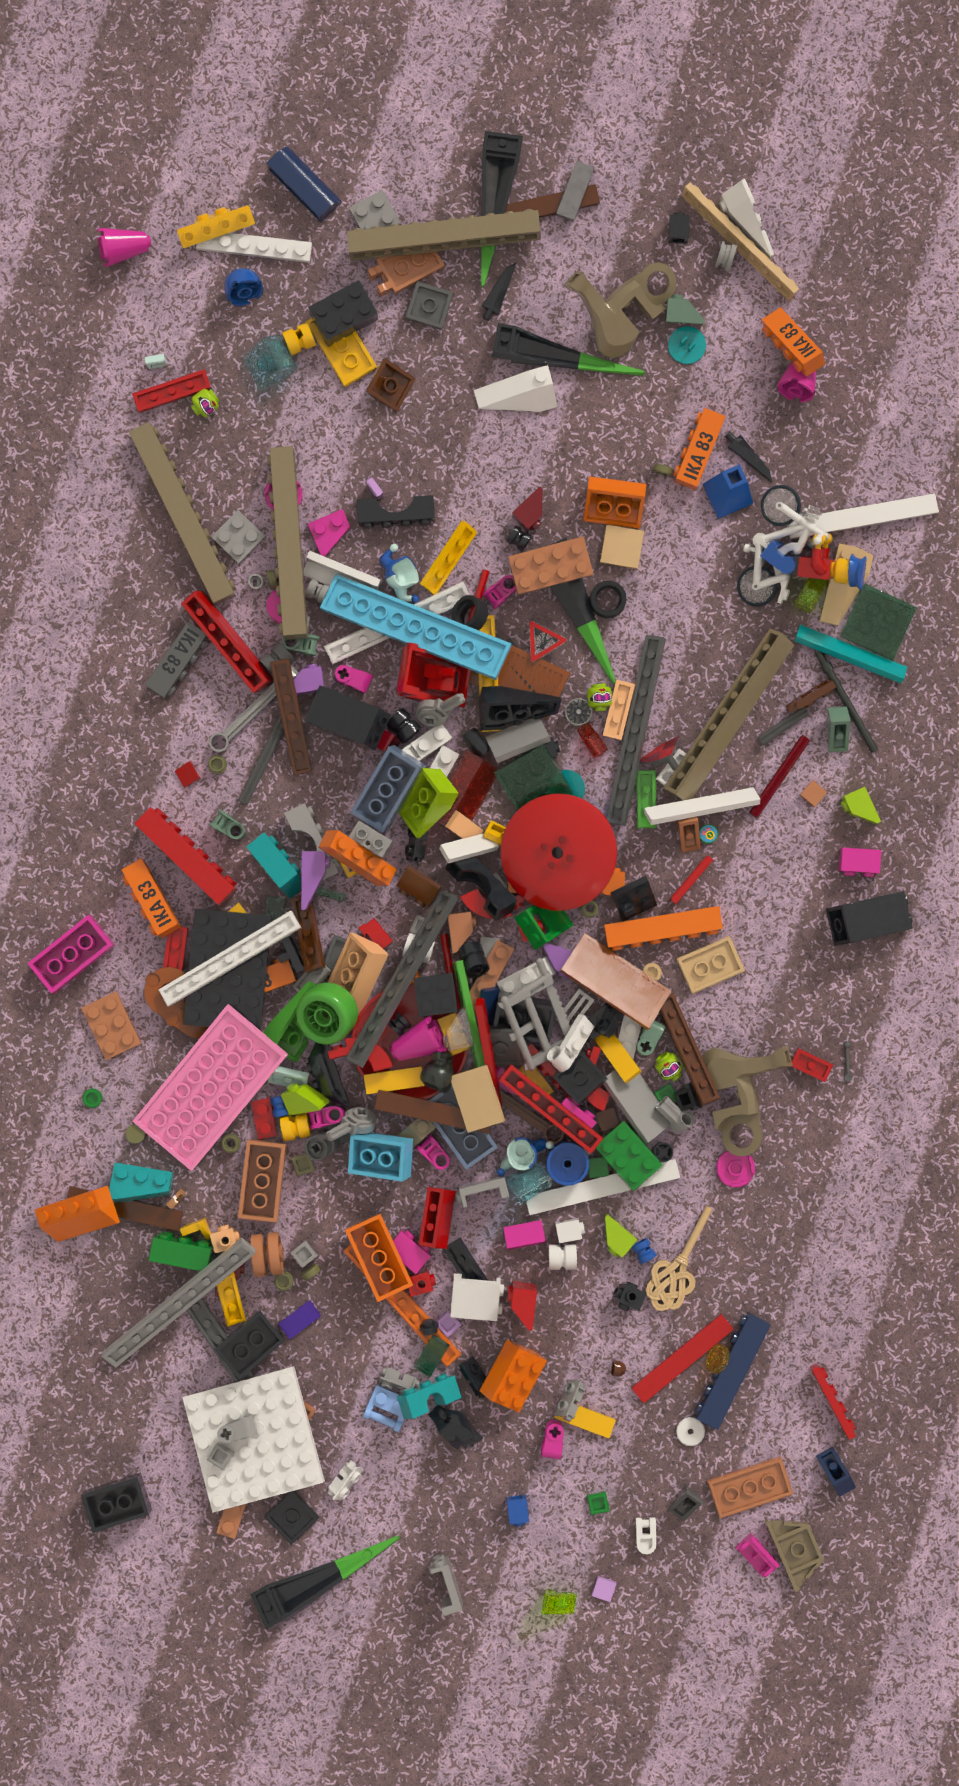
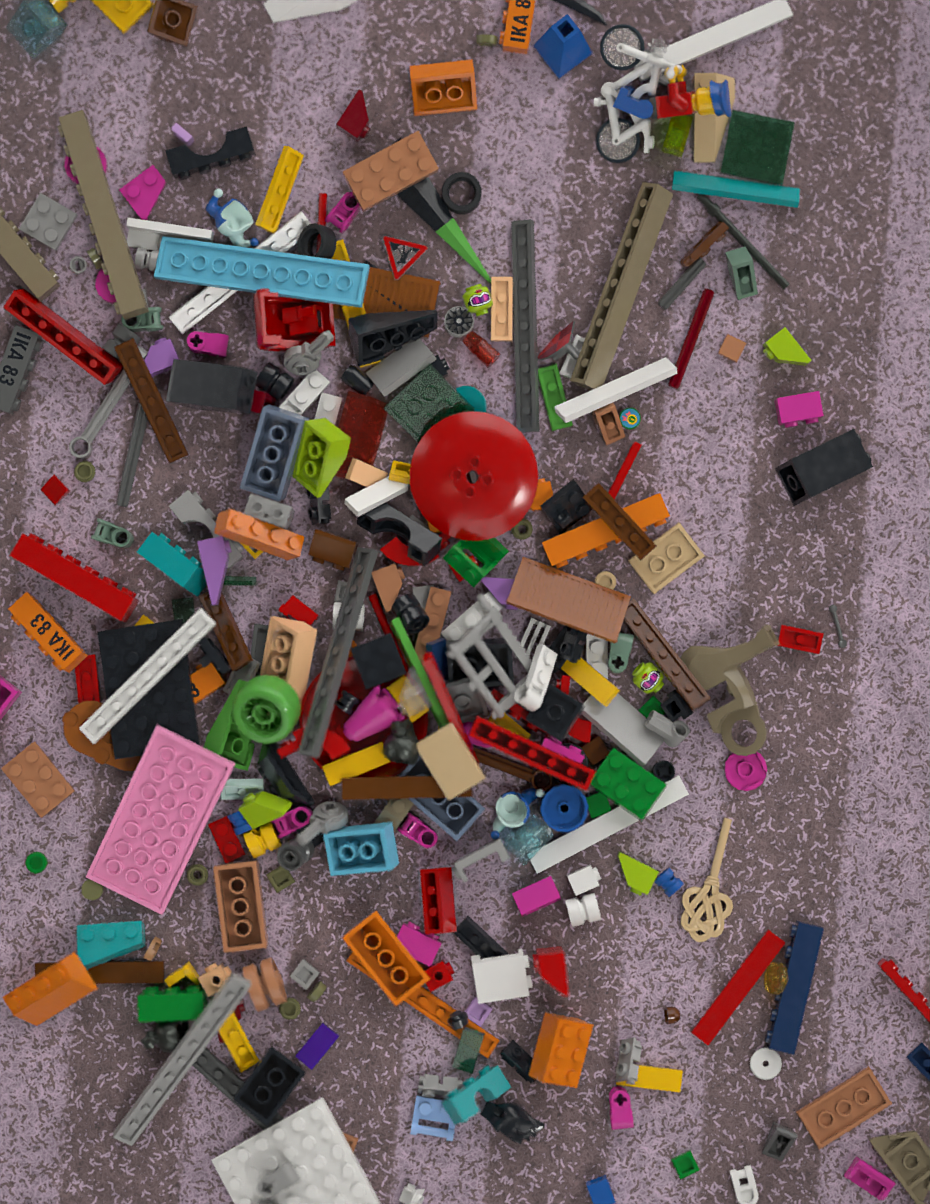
camera: 15 degrees left, 0 degrees up
(170, 1278) = (166, 1035): none -> pearl dark grey piece
(518, 538) = (350, 150): black wheel -> none
(622, 547) = (463, 133): tan tile -> none
(628, 1297) = (664, 935): black brick -> none
(677, 923) = (619, 521): none -> reddish brown plate

